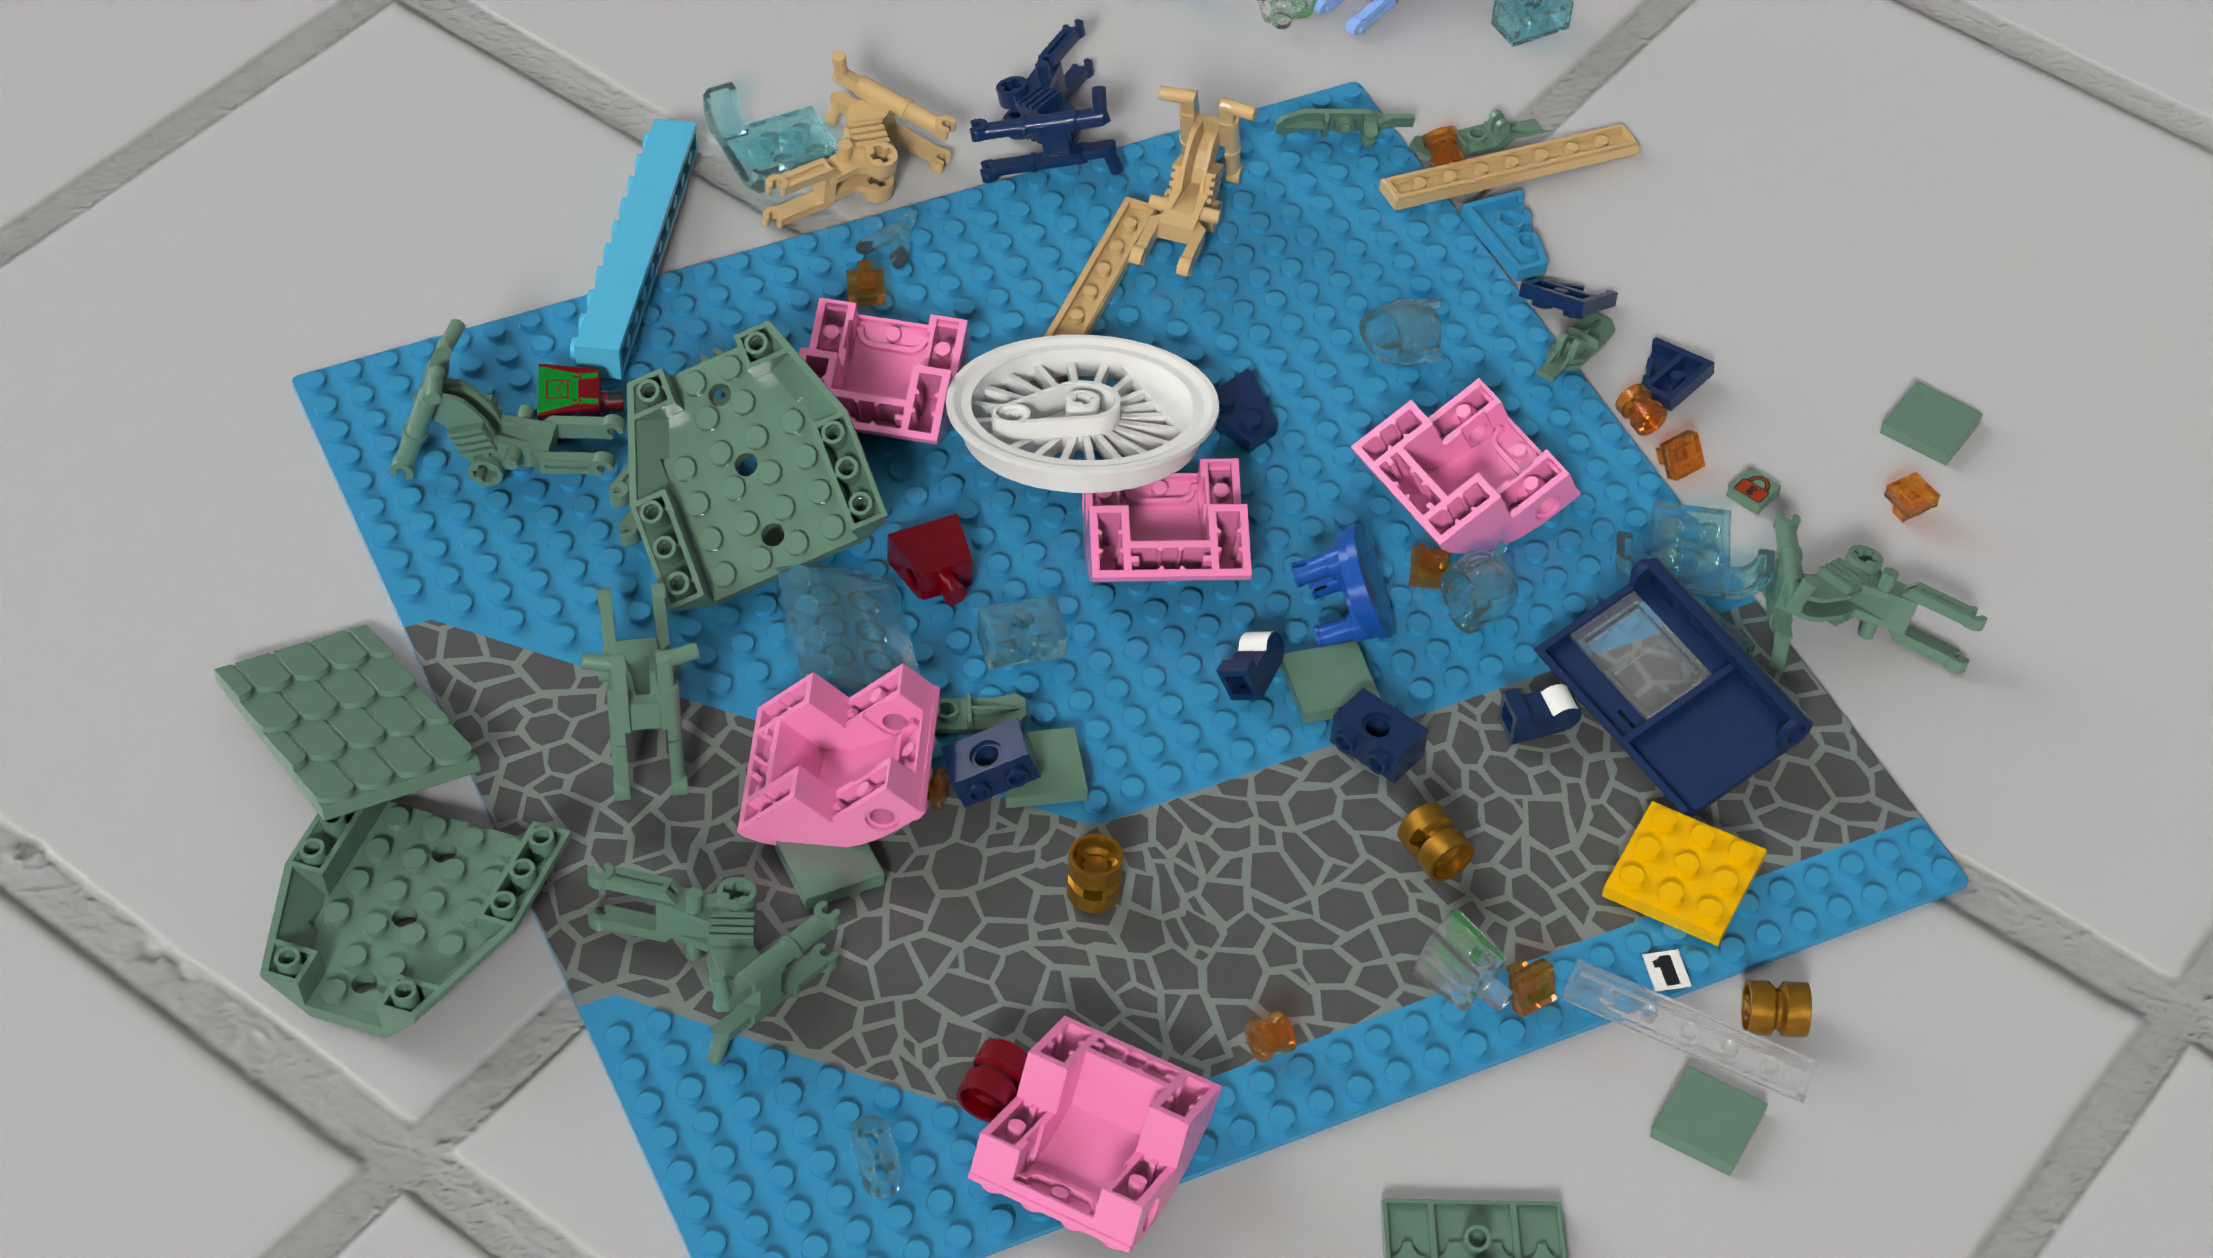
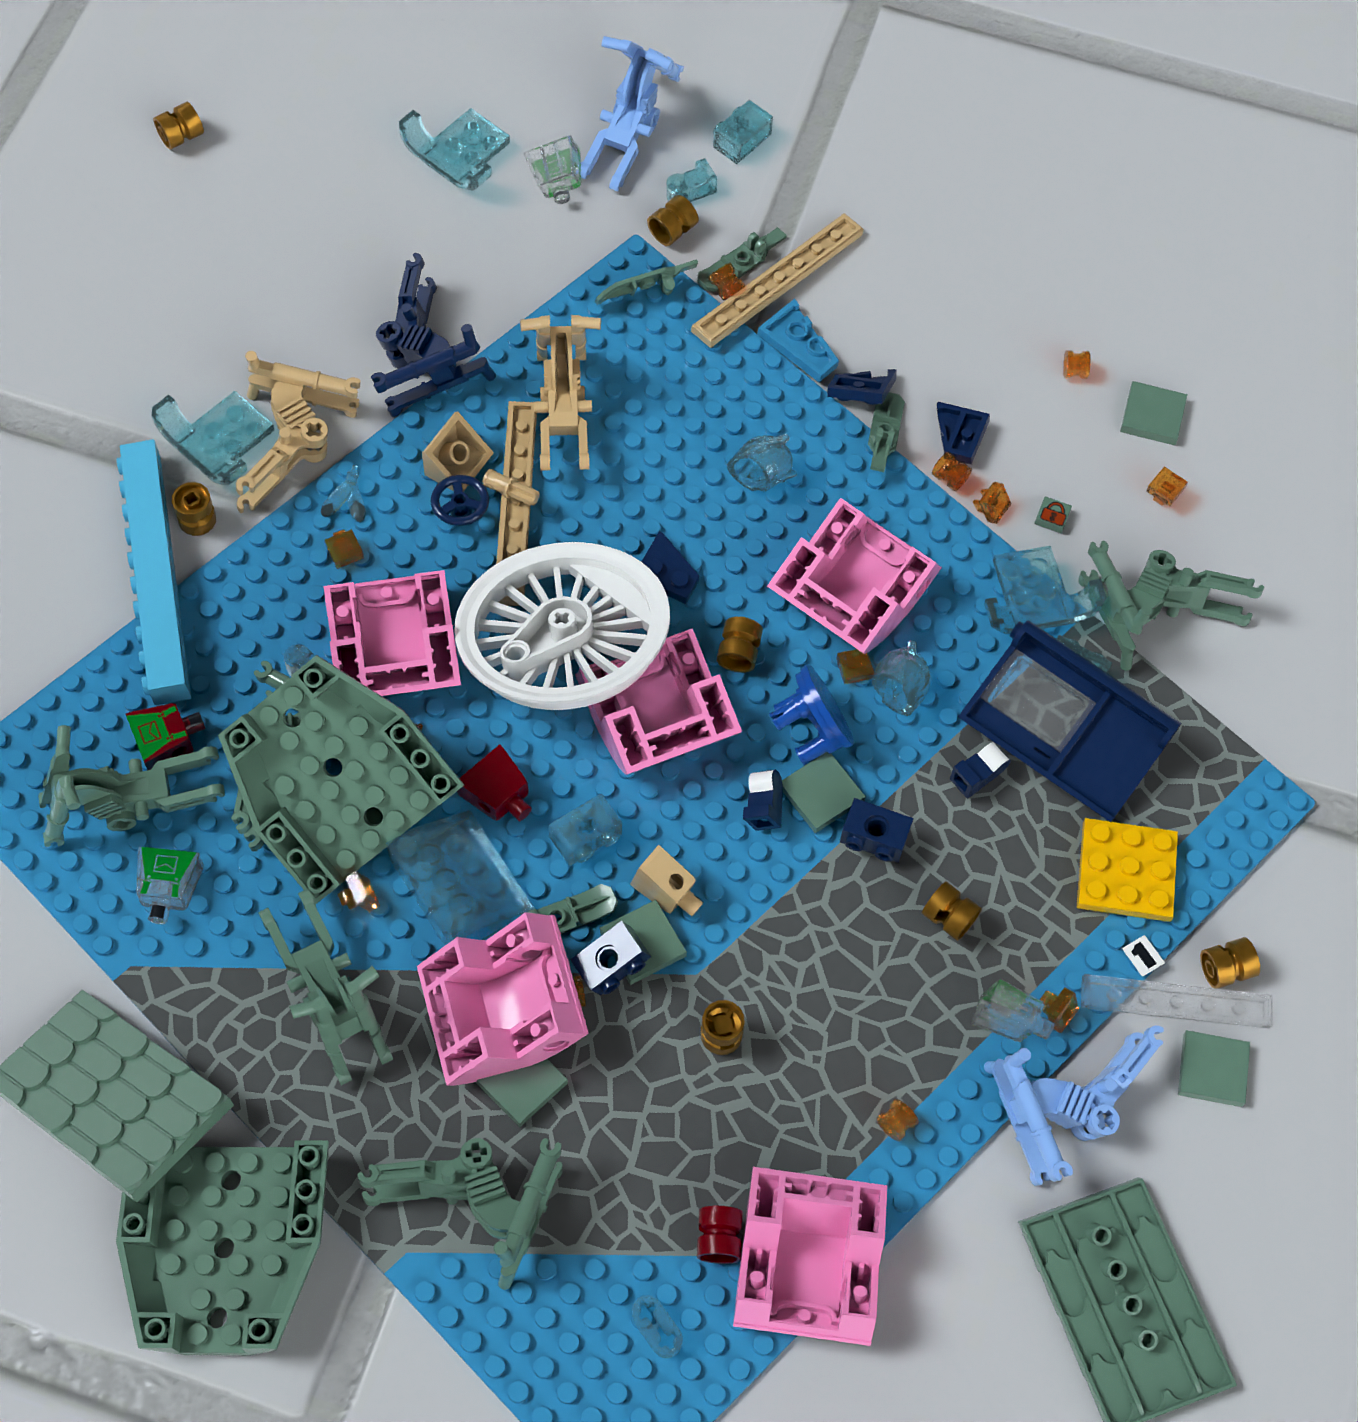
camera: 20 degrees left, 15 degrees up
(510, 539) = (166, 880): none -> torso
(711, 202) = (194, 508): none -> pearl gold wheel
(723, 617) = (359, 893): none -> clear orange tile
(1020, 279) = (460, 513): none -> dark blue piece
(1036, 226) = (455, 451): none -> tan slope
(1086, 274) = (510, 487): none -> tan axle
(1092, 705) = (666, 882): none -> tan torso
(1293, 502) = (740, 644): none -> pearl gold wheel
(1405, 75) = (673, 220): none -> pearl gold wheel
(1445, 48) = (693, 183): none -> clear light blue leg
(1493, 1079) = (1066, 1103): none -> light blue piece
(1850, 344) = (1076, 364): none -> clear orange wheel

